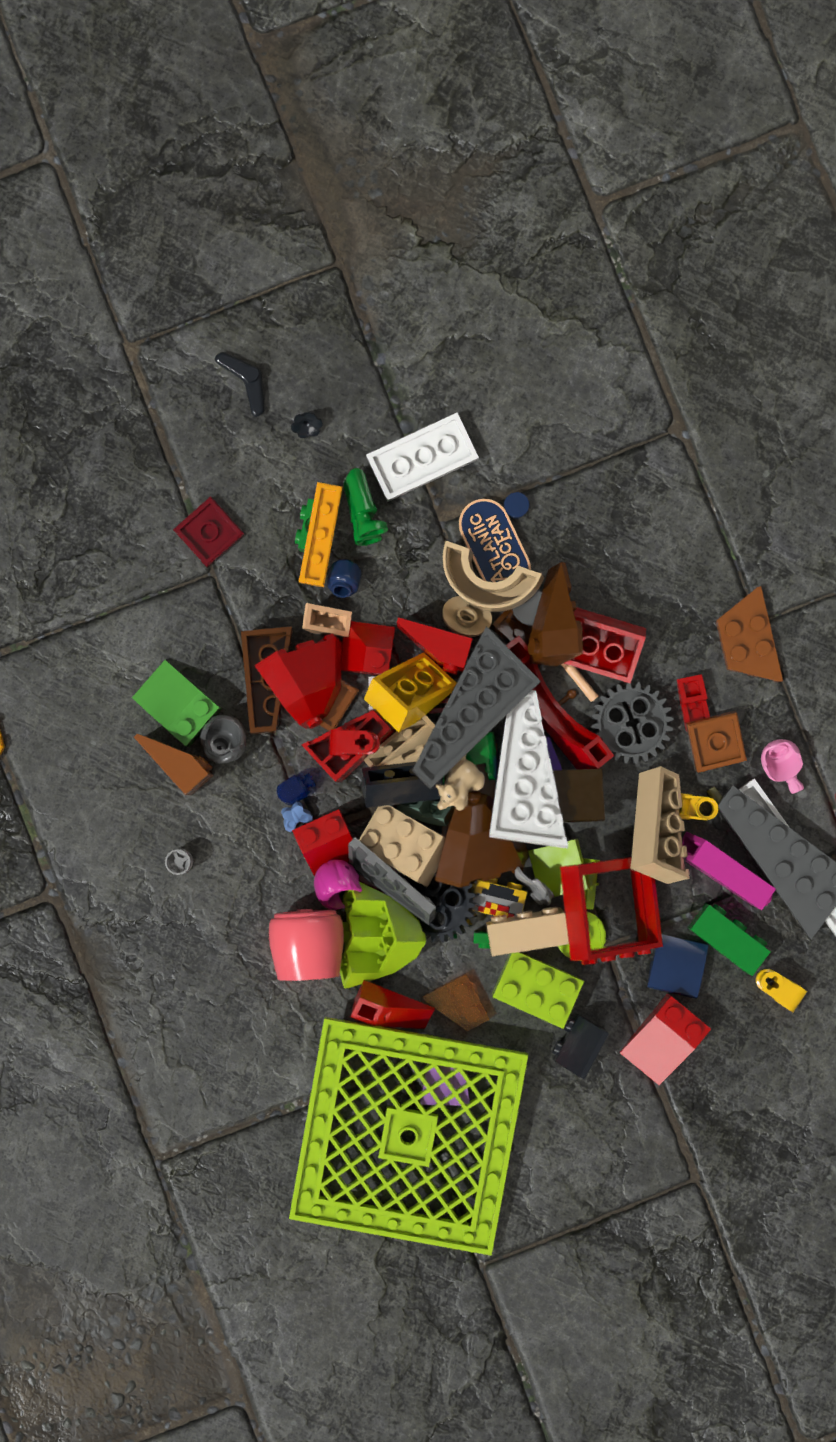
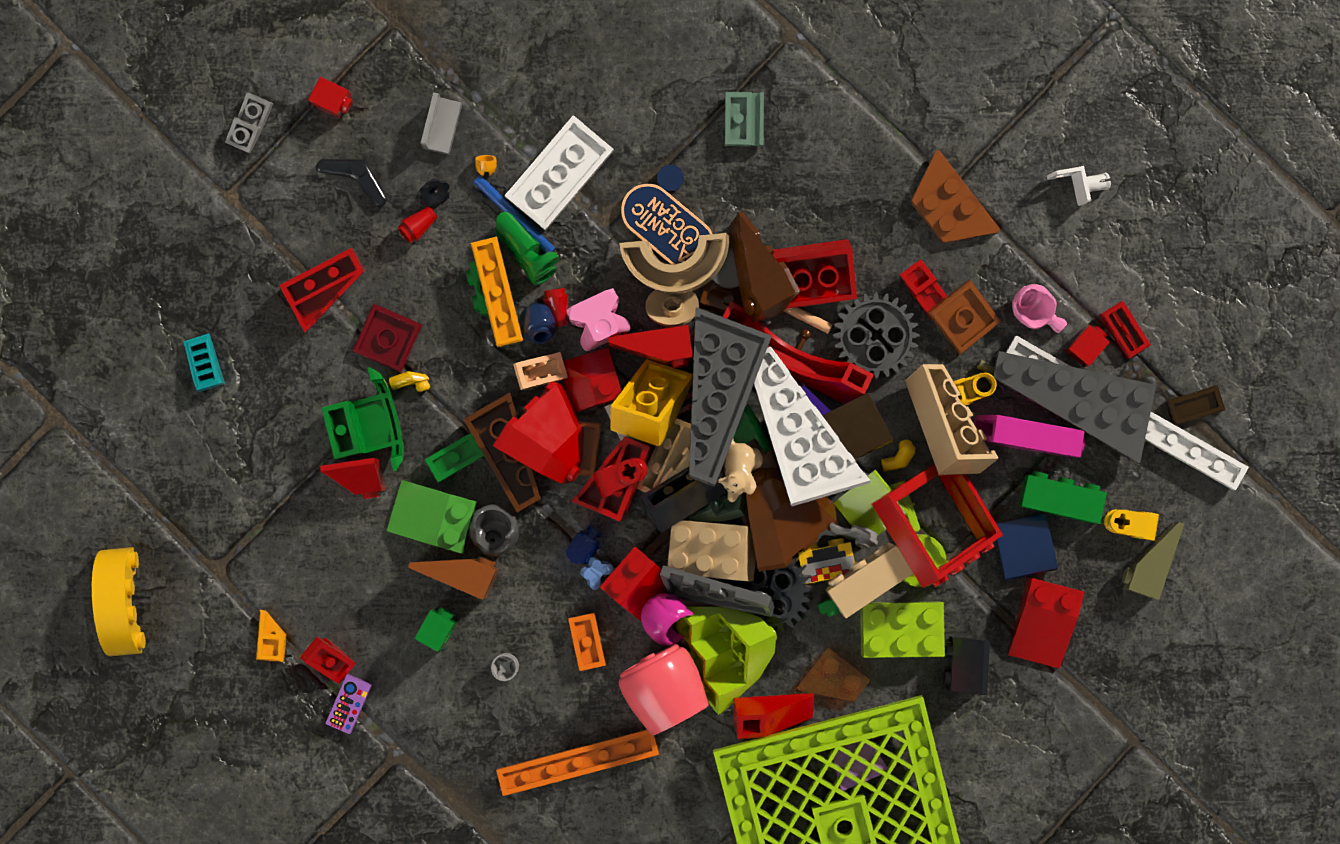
camera: 30 degrees left, 0 degrees up
(30, 785) = (328, 659): none -> red slope
(30, 831) = (348, 704): none -> tile
(46, 501) = (218, 379): none -> teal slope
(128, 639) = (358, 476): none -> red slope
(135, 801) = (437, 628): none -> green brick
(155, 597) = (365, 424): none -> green piece
(171, 461) = (321, 287): none -> red wedge
(175, 293) = (249, 123): none -> light grey slope
(203, 972) = (577, 762): none -> orange plate
(213, 575) = (408, 378): none -> yellow arm
(218, 661) = (454, 457): none -> green plate
(255, 302) = (331, 98): none -> red brick
(259, 872) = (587, 641): none -> orange plate
(279, 445) = (416, 225): none -> red cone
(339, 368) = (441, 124): none -> light grey panel
(362, 420) = (485, 163): none -> light orange hinge
(363, 465) = (505, 206): none -> blue bar
(369, 568) = (558, 304): none -> red cone
(397, 598) = (598, 319): none -> bright pink piece
(603, 483) = (744, 119): none -> sand green plate
(605, 840) = (902, 458): none -> yellow arm
(779, 1035) = (1152, 566): none -> olive slope
(812, 816) = (1087, 345): none -> red brick

